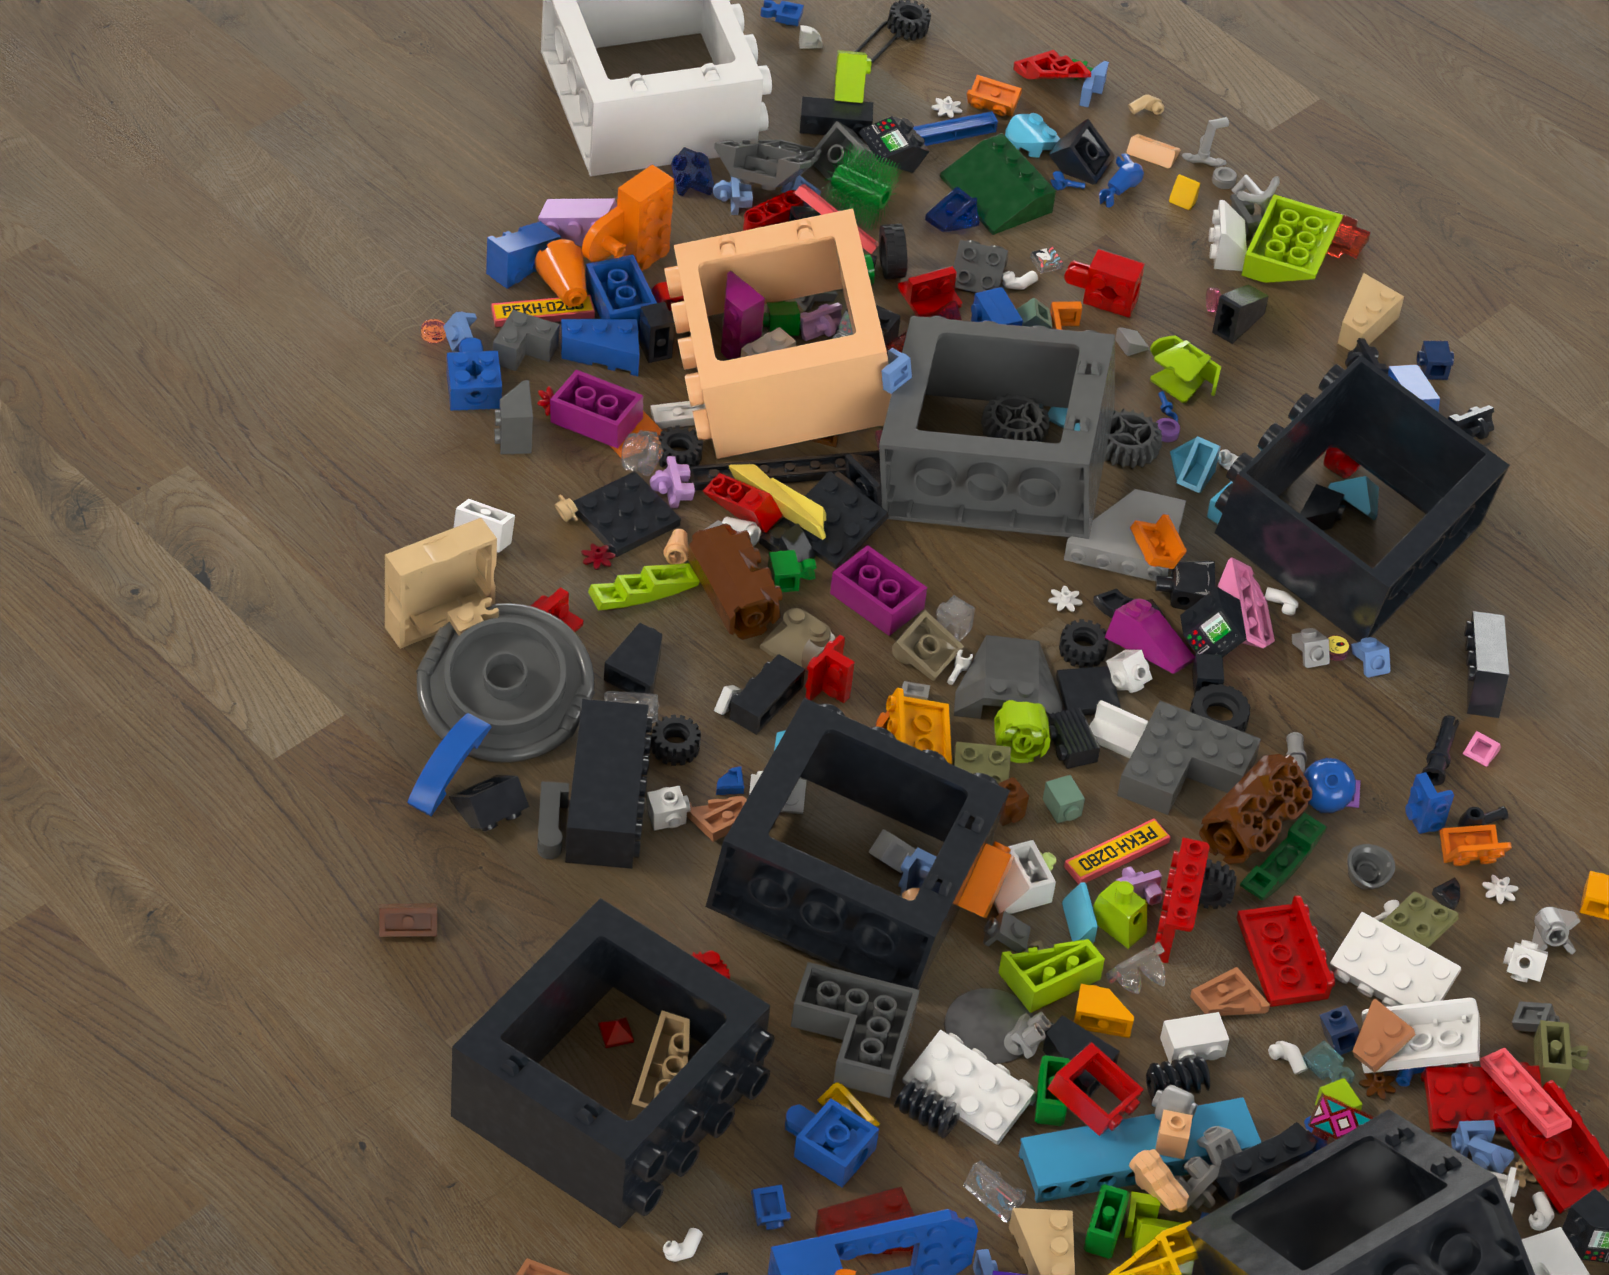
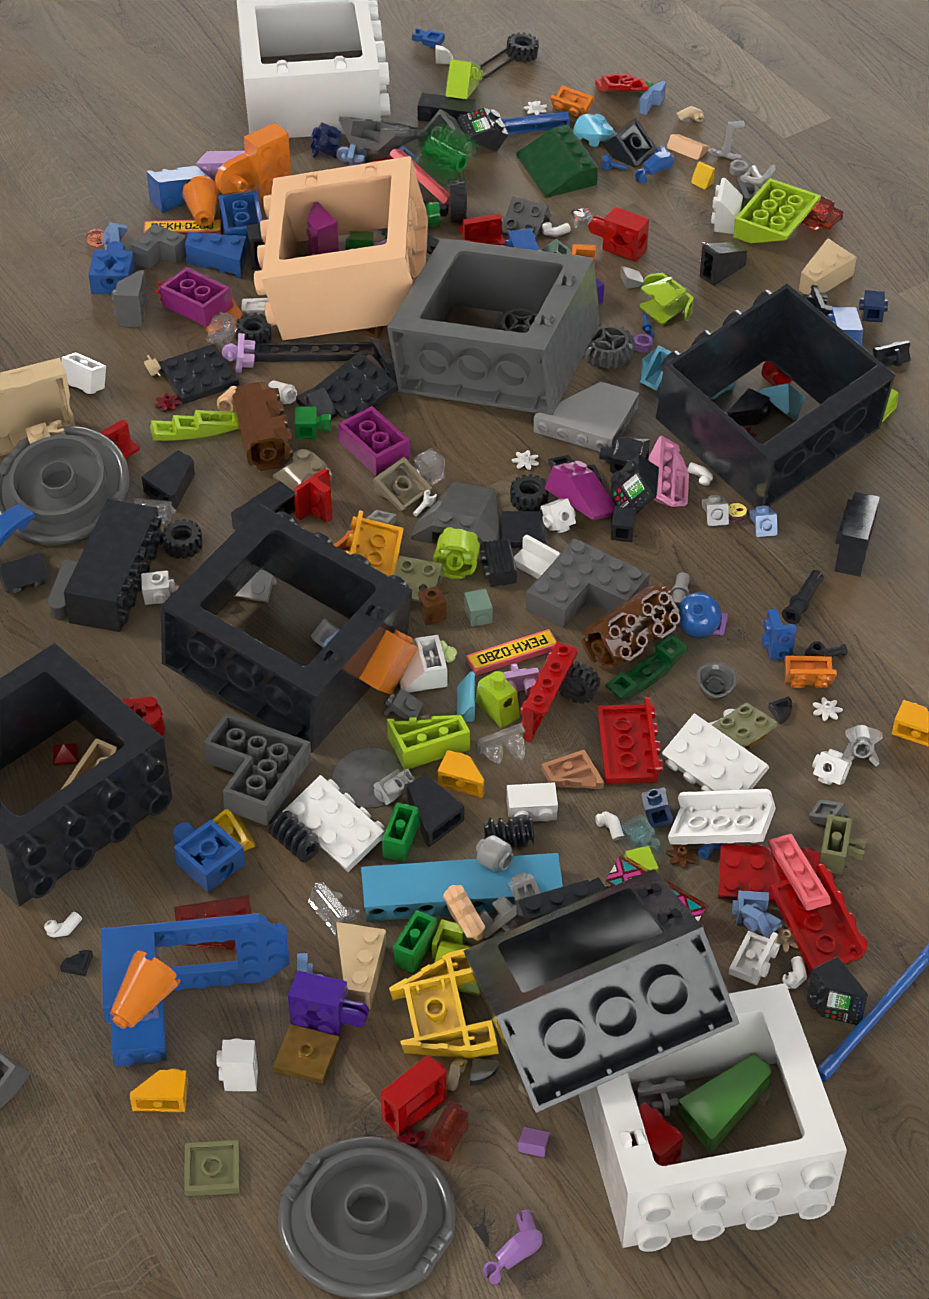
camera: 15 degrees right, 0 degrees up
(725, 698) = (231, 506): white tile -> none
(744, 501) = (290, 370): red slope -> none
(770, 1207) = (141, 901): blue bracket -> none
(791, 503) = (316, 368): light yellow wedge -> none
(897, 371) = (414, 274): medium blue bracket -> none
(954, 212) = (518, 179): clear blue slope -> none
(1108, 1075) = (432, 809): red window -> none
(1159, 542) = (605, 421): orange bracket -> none
(1173, 1134) = (485, 875): light nougat brick -> none
(1225, 697) = (630, 541): black tyre -> none
(1381, 1036) = (686, 815): nougat wing -> none
(1482, 749) = (839, 599): bright pink slope -> none

